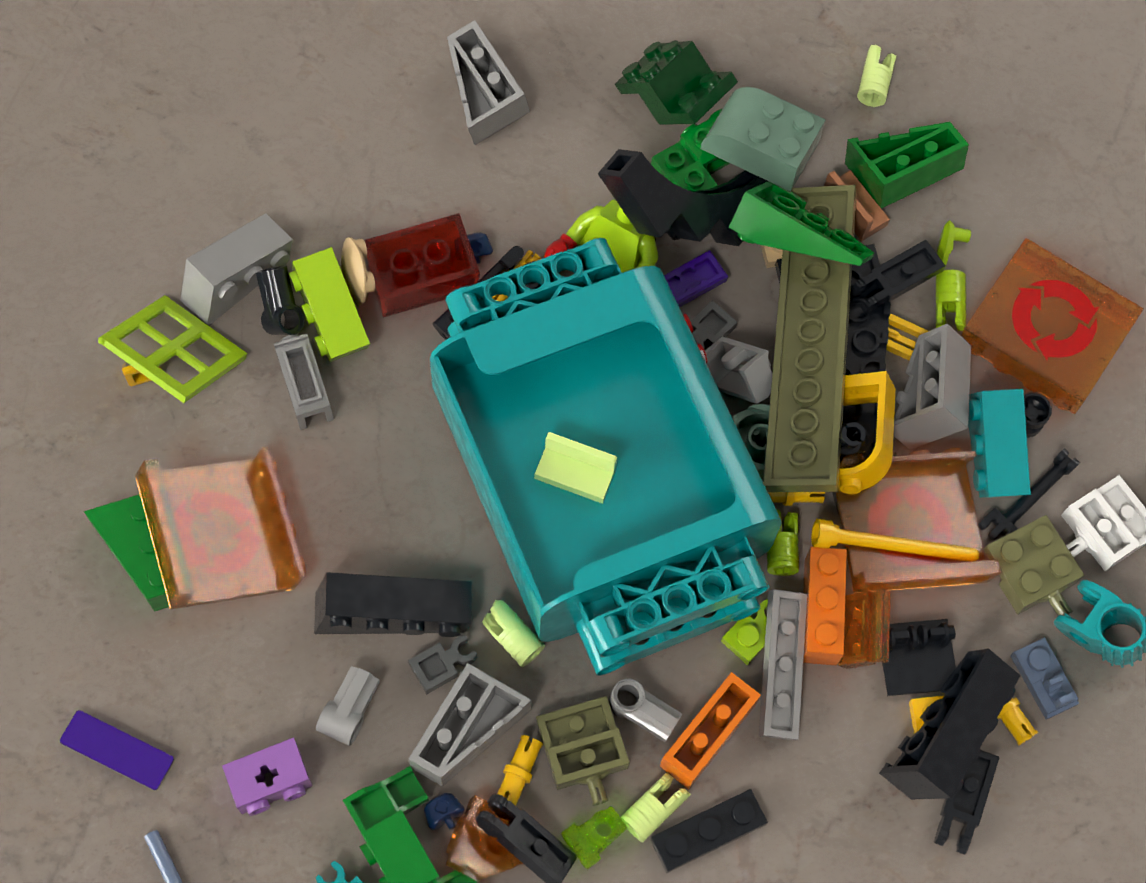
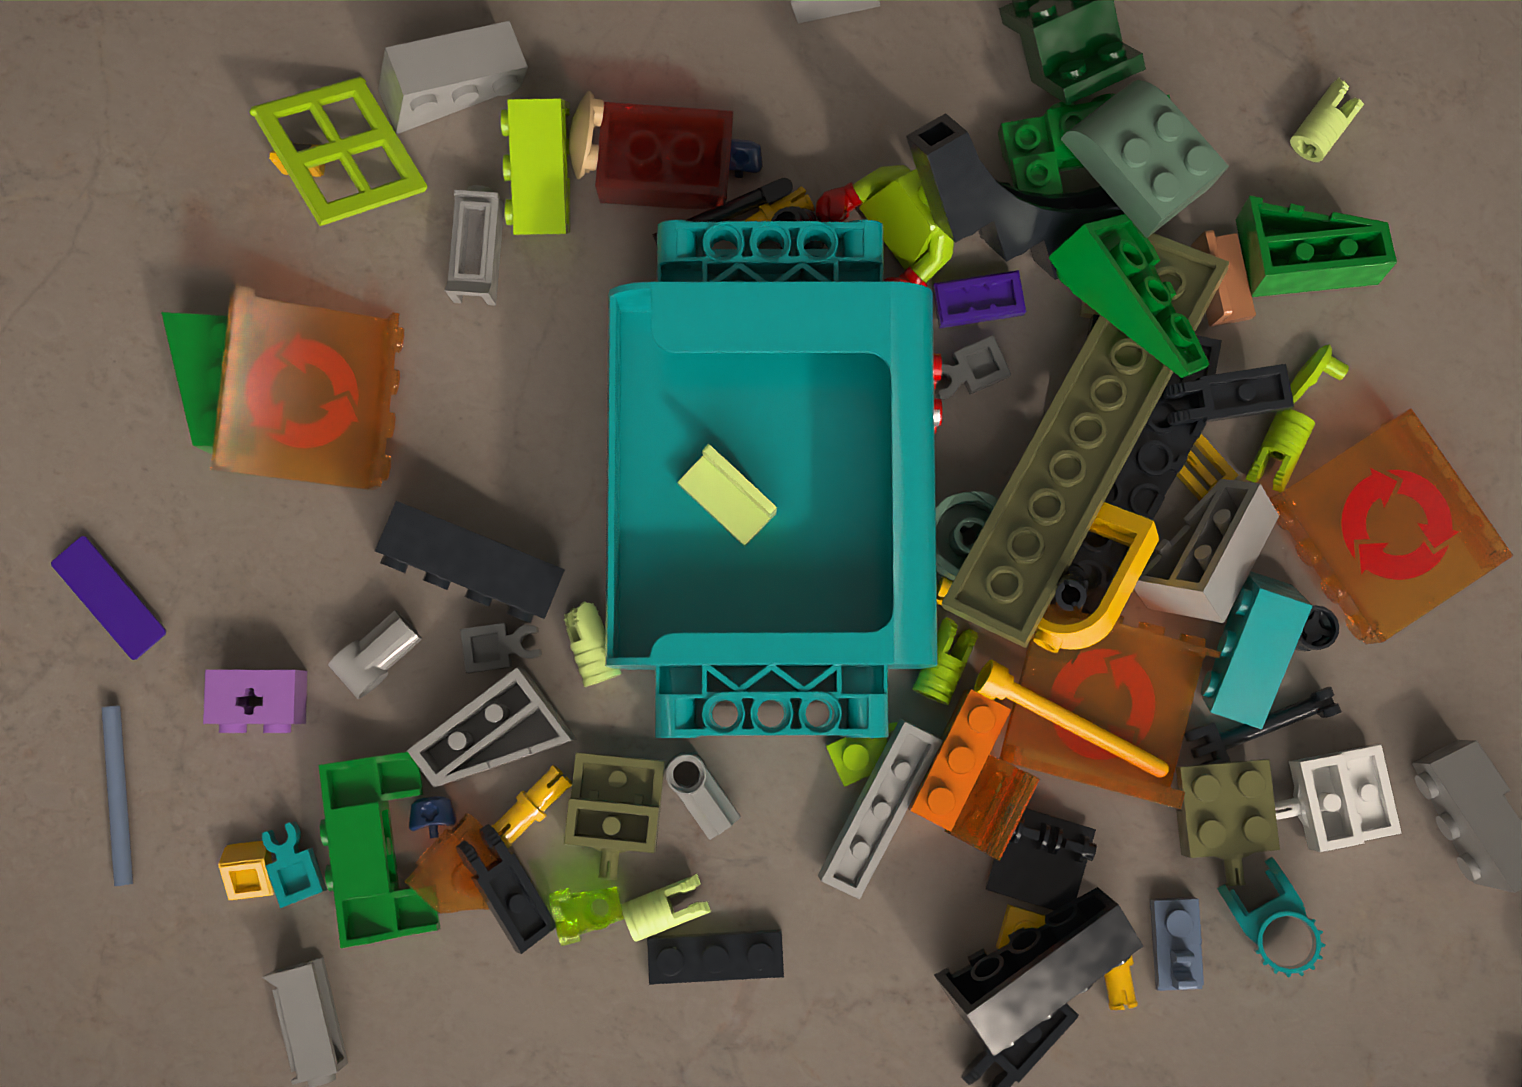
camera: 25 degrees right, 15 degrees up
(279, 299) = (481, 136): black piece -> none
(709, 730) = (761, 852): orange brick -> none
(745, 381) = (983, 438): light grey window -> none

